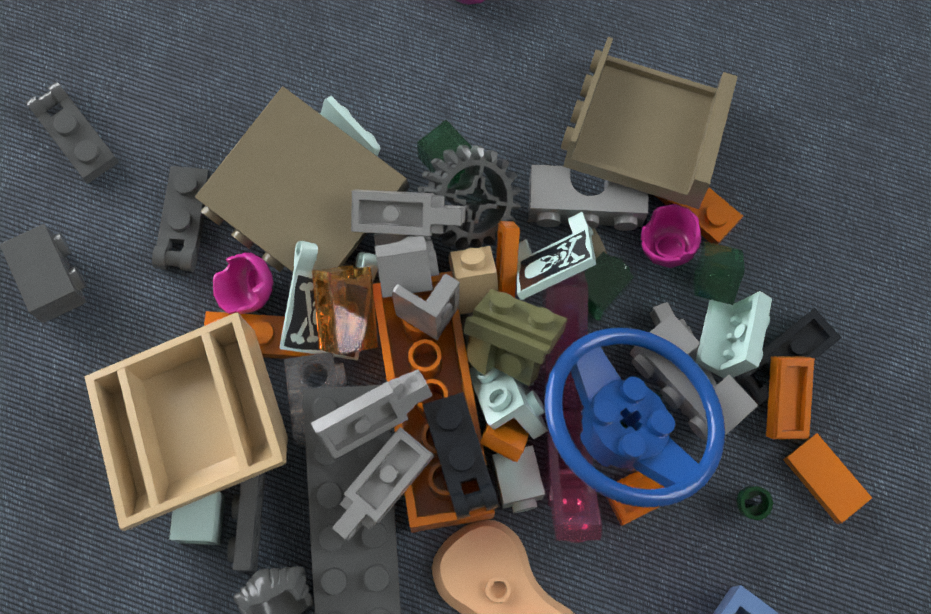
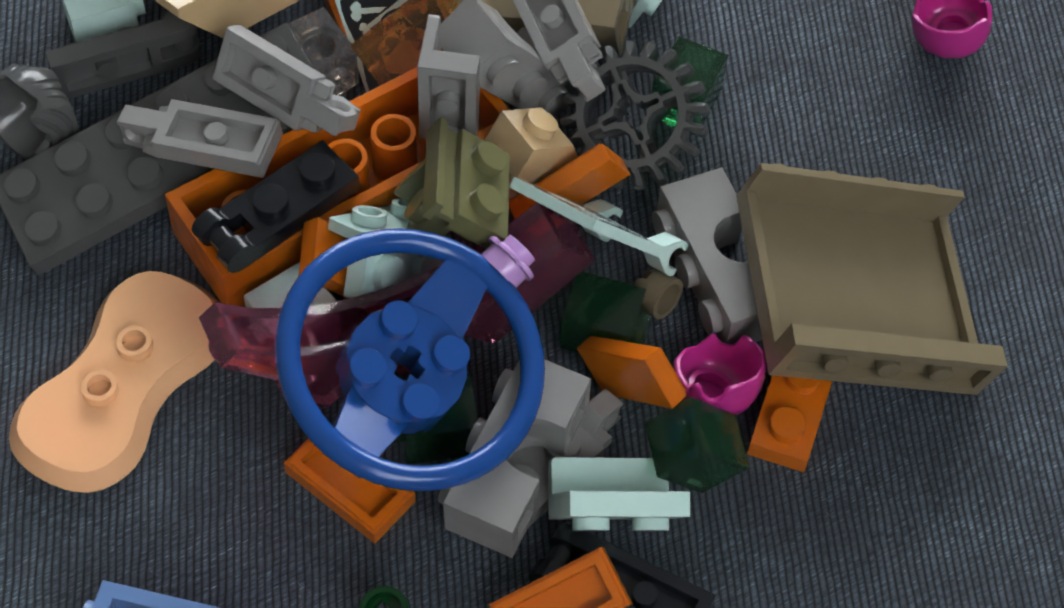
camera: 65 degrees right, 15 degrees down
(582, 324) = (510, 259): none -> lavender plate
(660, 286) = (632, 371): none -> orange tile

